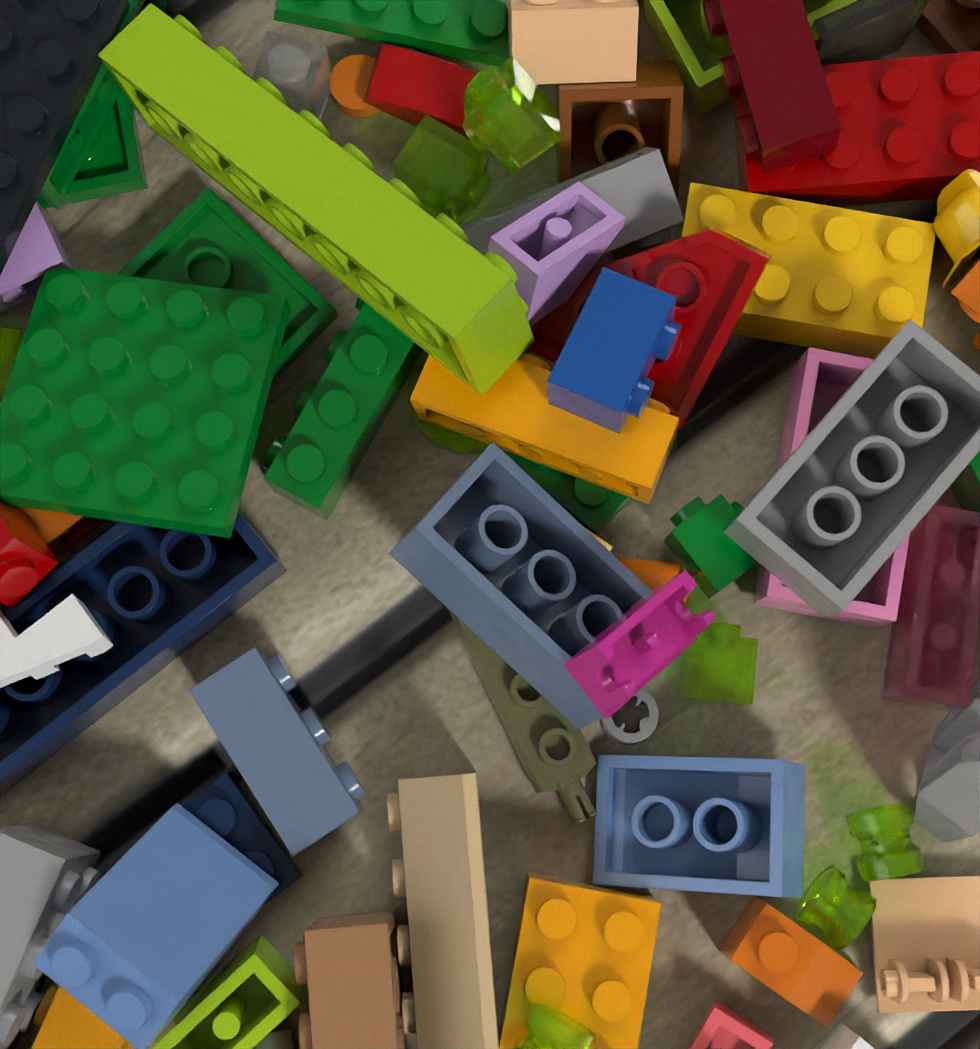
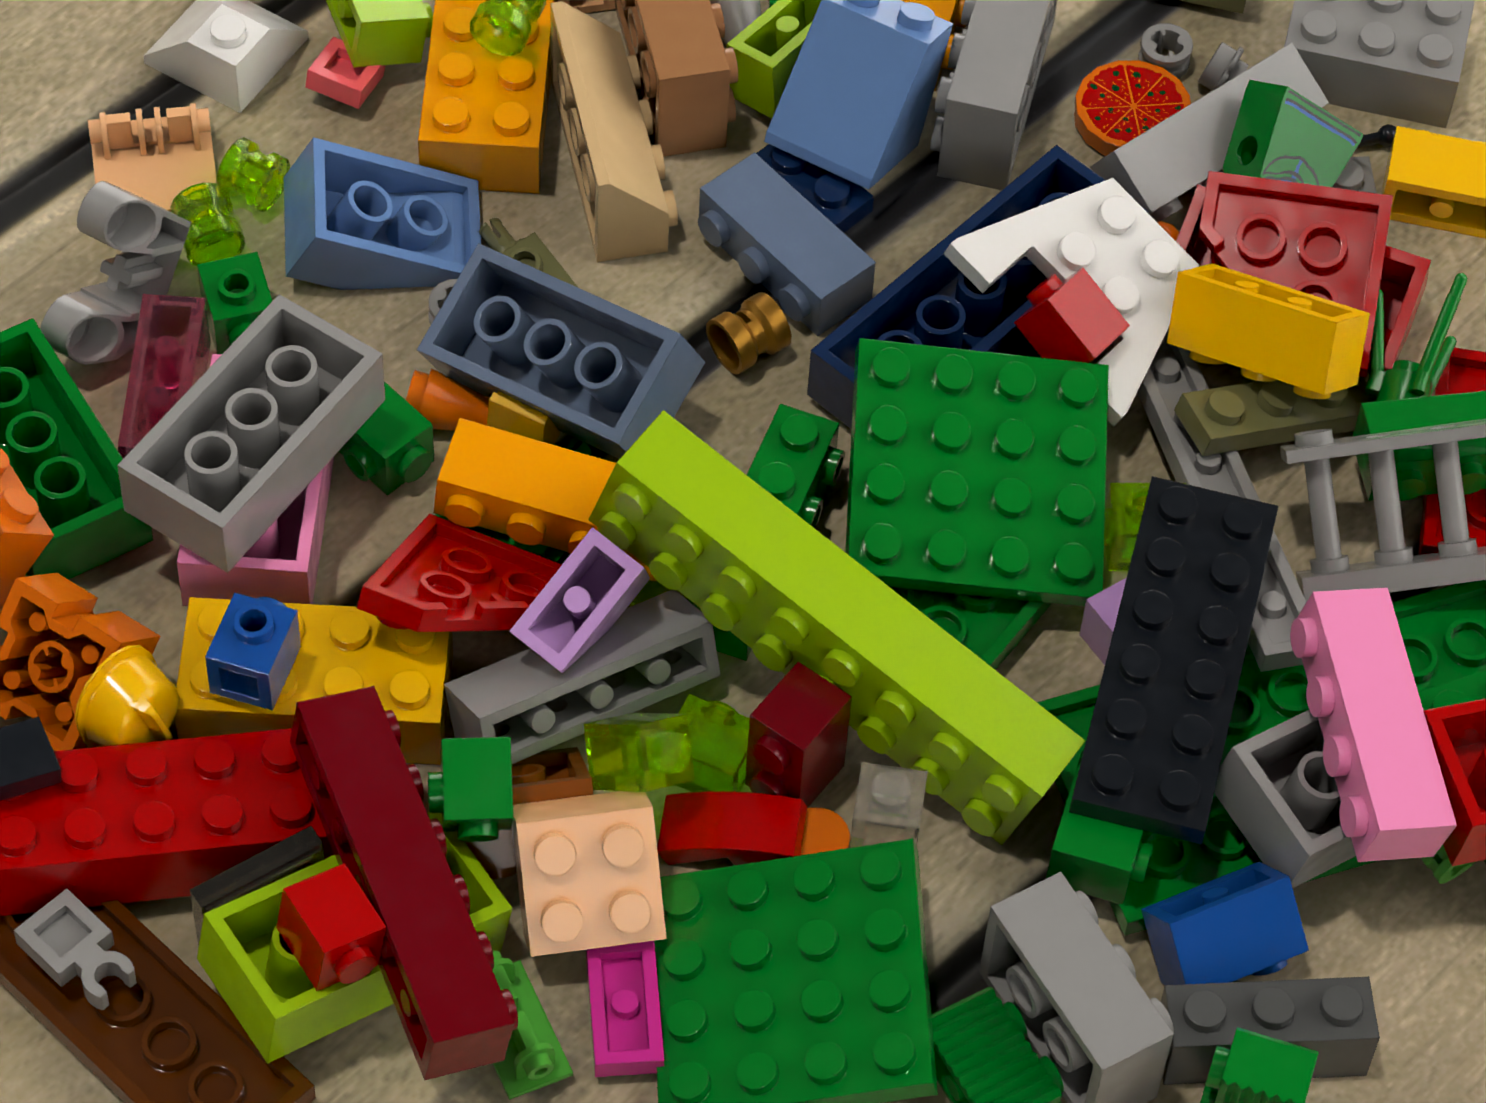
camera: 170 degrees right, 25 degrees down
(321, 645) = (750, 332): none -> pearl gold wheel
(369, 118) = (798, 736): none -> dark red brick
(613, 350) = (508, 511): blue brick -> none
(638, 645) = (464, 294): dark pink hinge -> none
(673, 62) = (473, 787): none -> green brick
(719, 667) = (382, 322): clear neon green brick -> none
(790, 961) = (291, 119): orange slope -> none
(856, 727) = (234, 296): none -> green brick
(870, 234) = (253, 650): none -> blue brick

